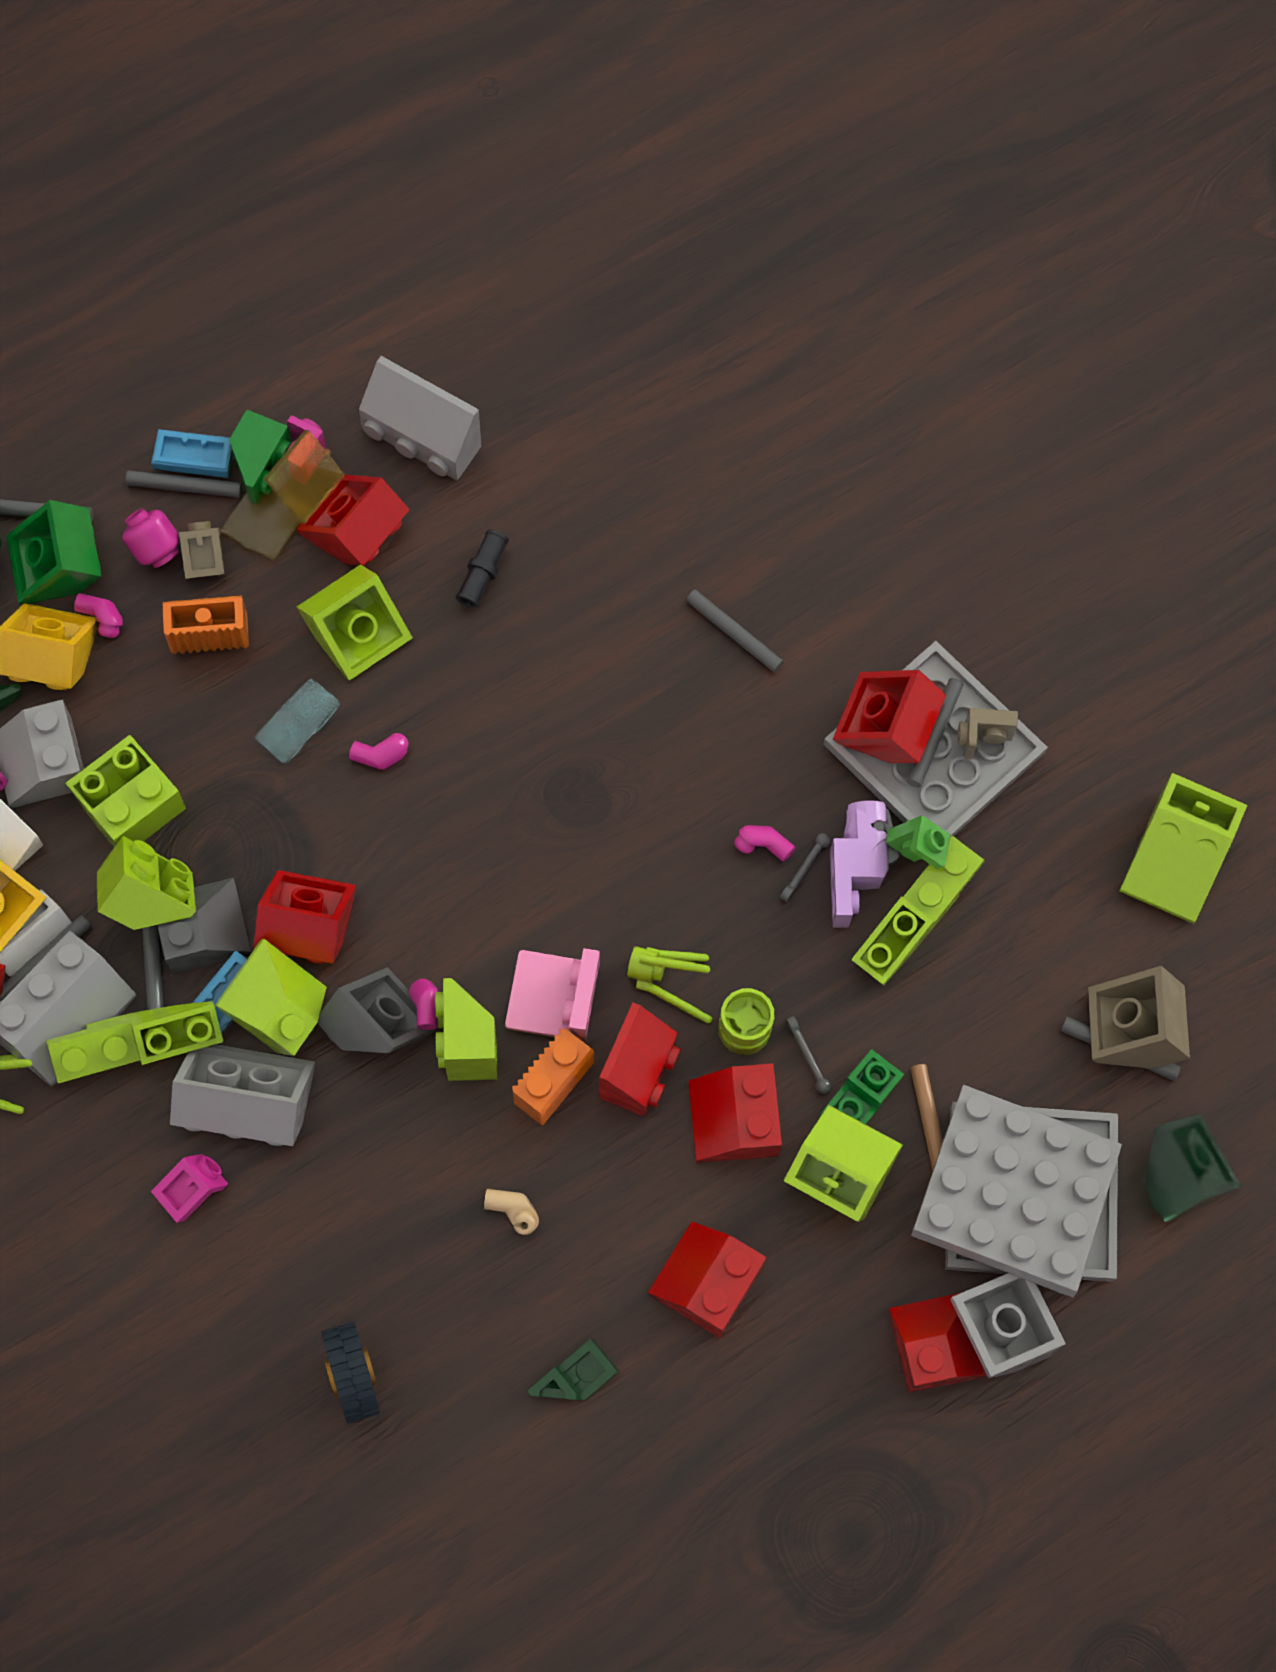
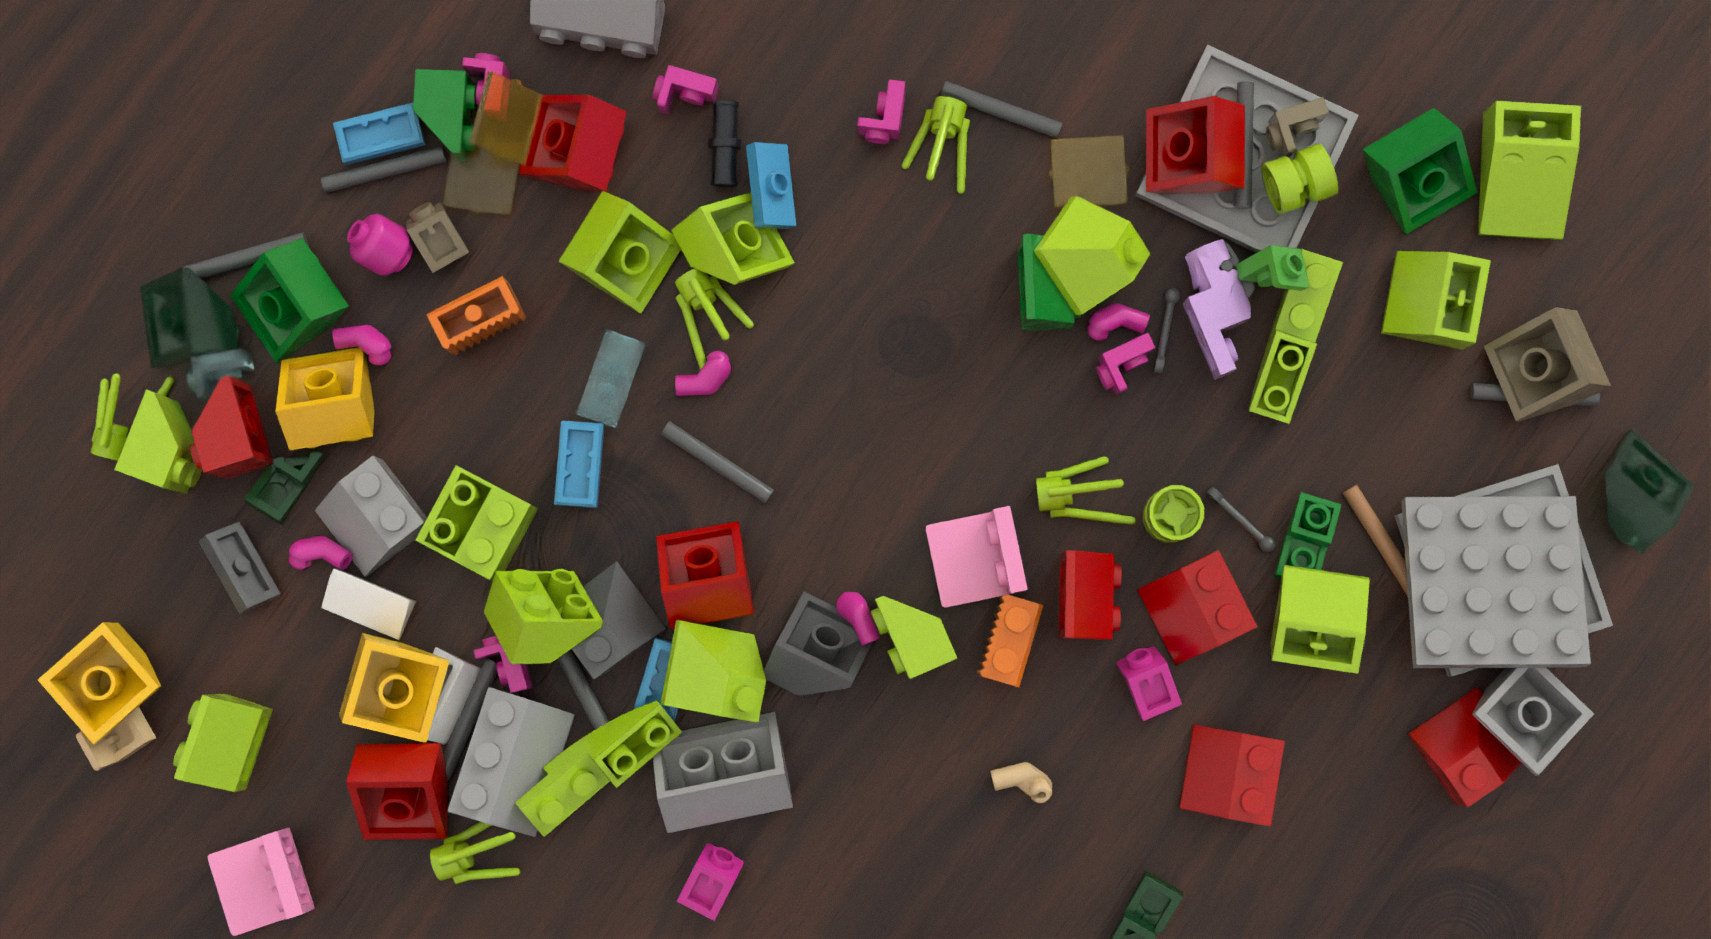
camera: 15 degrees left, 15 degrees up
(99, 930) = (511, 675): none -> dark pink bracket
(237, 782) = (579, 464): none -> dark azure plate
(360, 828) = (717, 462): none -> dark grey bar
(406, 680) = (698, 291): none -> lime plant
(454, 644) = (727, 245): none -> lime slope
(470, 507) = (692, 88): none -> dark pink bracket
(507, 616) = (771, 185): none -> dark azure plate
(635, 595) = (890, 107): none -> dark pink bracket
(665, 1165) = (1149, 682): none -> dark pink bracket
(679, 620) = (946, 121): none -> lime plant
(713, 781) = (1040, 299): none -> green slope
(756, 870) = (1129, 355): none -> dark pink bracket
(759, 767) = (1090, 253): none -> lime slope
(790, 710) = (1089, 169): none -> clear yellow piece
(971, 774) = (1302, 178): none -> lime wheel
(1058, 925) = (1436, 298): none -> lime slope
(1087, 815) = (1421, 169): none -> green slope

